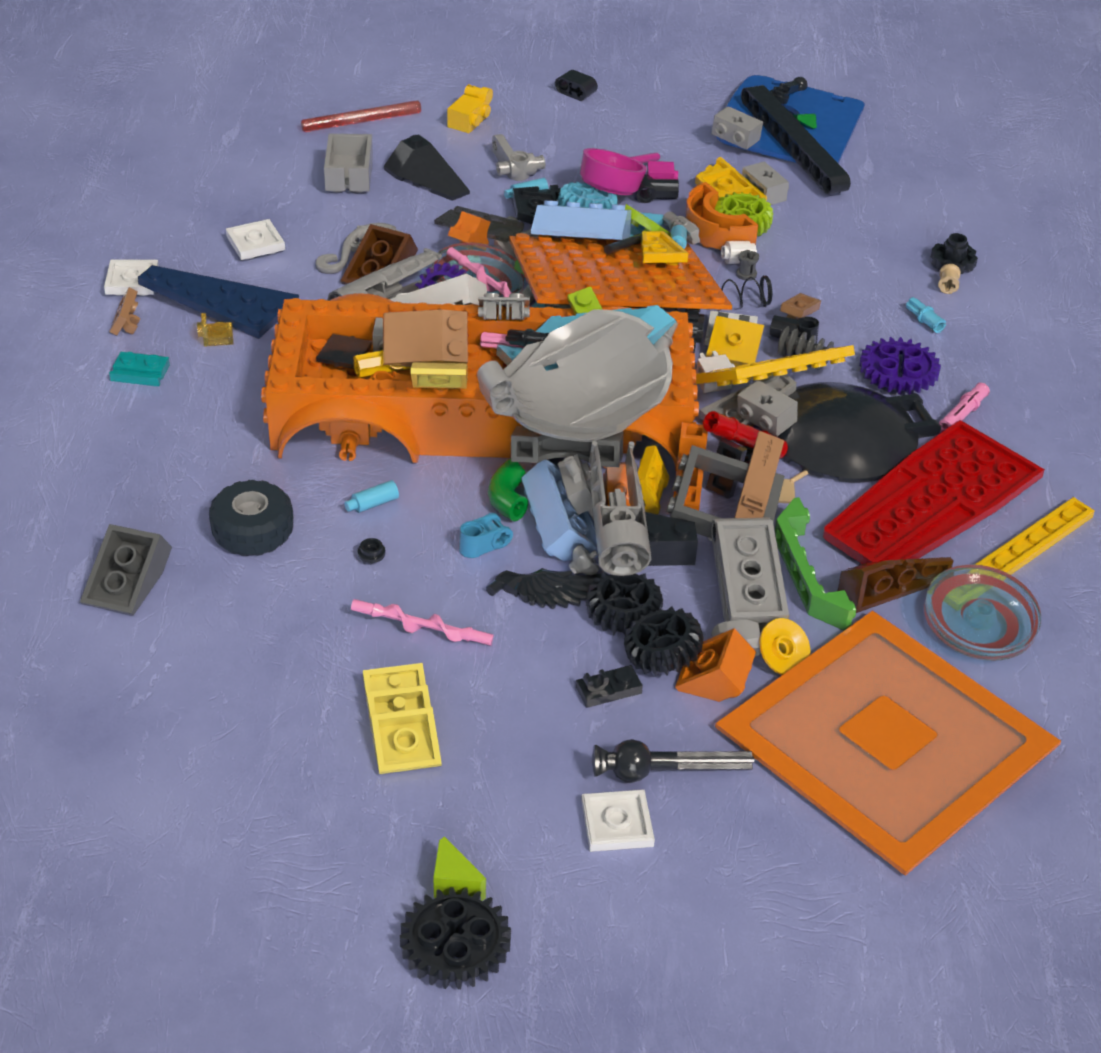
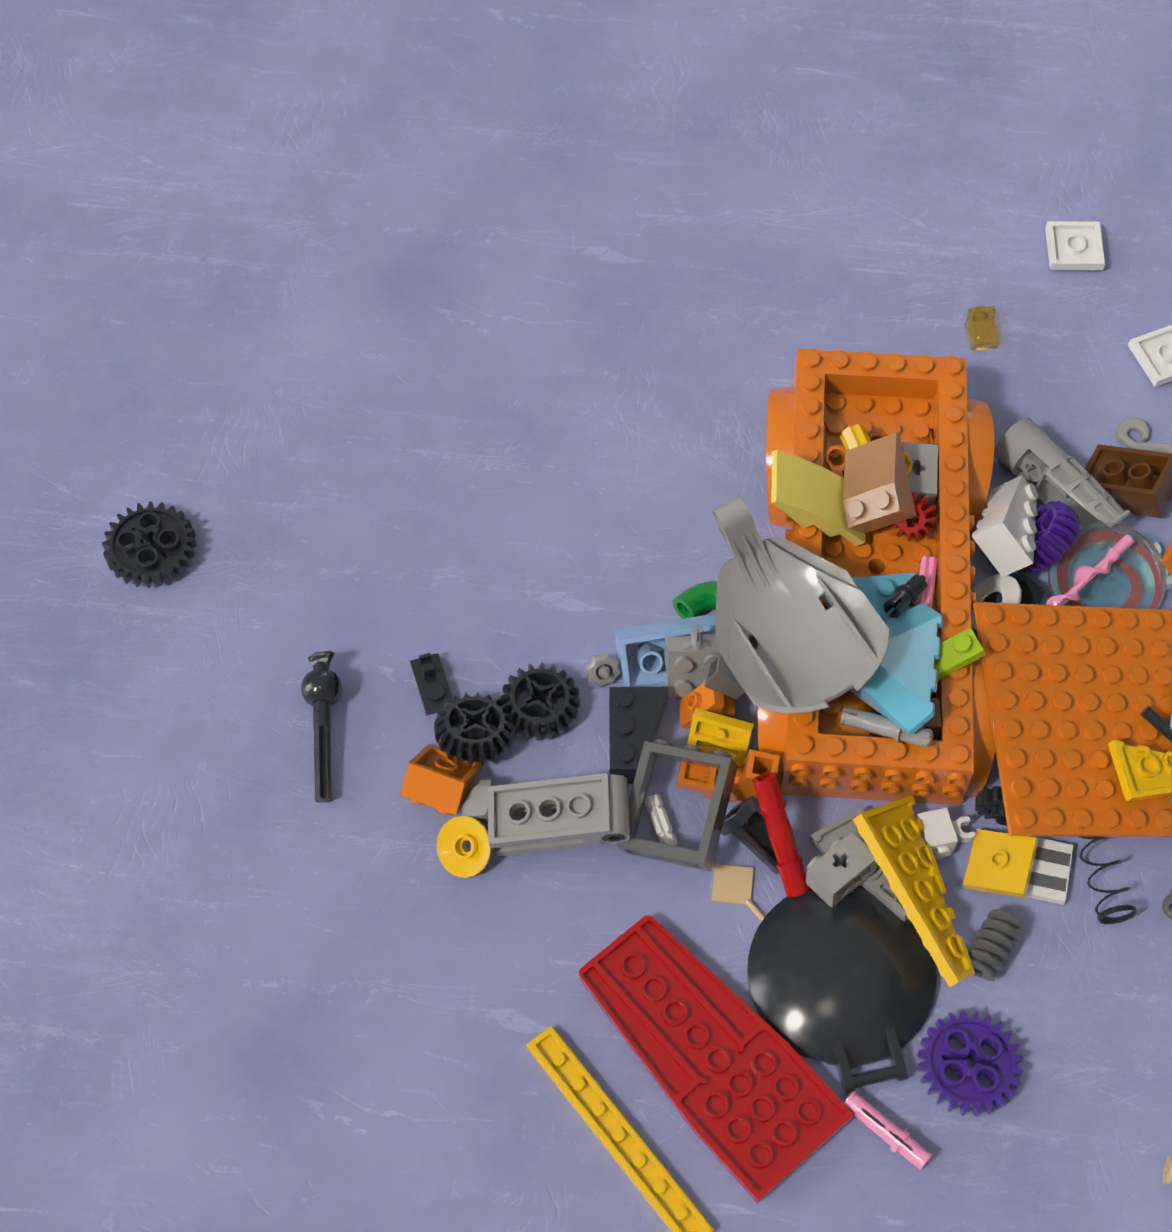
camera: 95 degrees right, 20 degrees up
(124, 315) = (1016, 245): medium nougat plate -> none
(125, 569) = (597, 283): dark grey slope -> none
(139, 368) = (914, 269): teal plate -> none
(246, 306) = (1035, 340): dark blue wing -> none
(251, 517) = (664, 373): black wheel -> none
(341, 350) = (905, 421): black piece -> none
(371, 550) = (628, 474): black plate -> none
(372, 497) = (707, 480): medium azure cylinder -> none
(401, 718) = (398, 506): light yellow slope -> none
(412, 623) = (520, 512): bright pink piece -> none
(456, 871) = (215, 543): lime slope -> none
(482, 534) = (645, 581): dark azure piece -> none
(515, 300) = (960, 567): light grey hinge -> none
(544, 587) = (573, 636): black animal -> none
(617, 820) = (266, 679): white tile -> none
(619, 528) = (580, 682): light grey piece -> none
(759, 476) = (691, 833): medium nougat piece -> none
(800, 306) = (1086, 954): medium nougat plate -> none
(804, 324) = (1036, 940): black piece -> none
(828, 607) = (667, 886): bright green slope -> none
(888, 740) = (345, 938): baseplate -> none
(889, 579) = (557, 950): reddish brown wedge -> none
(926, 315) = (1094, 1124): medium azure axle -> none
(982, 612) = (500, 1059): clear light blue dish -> none

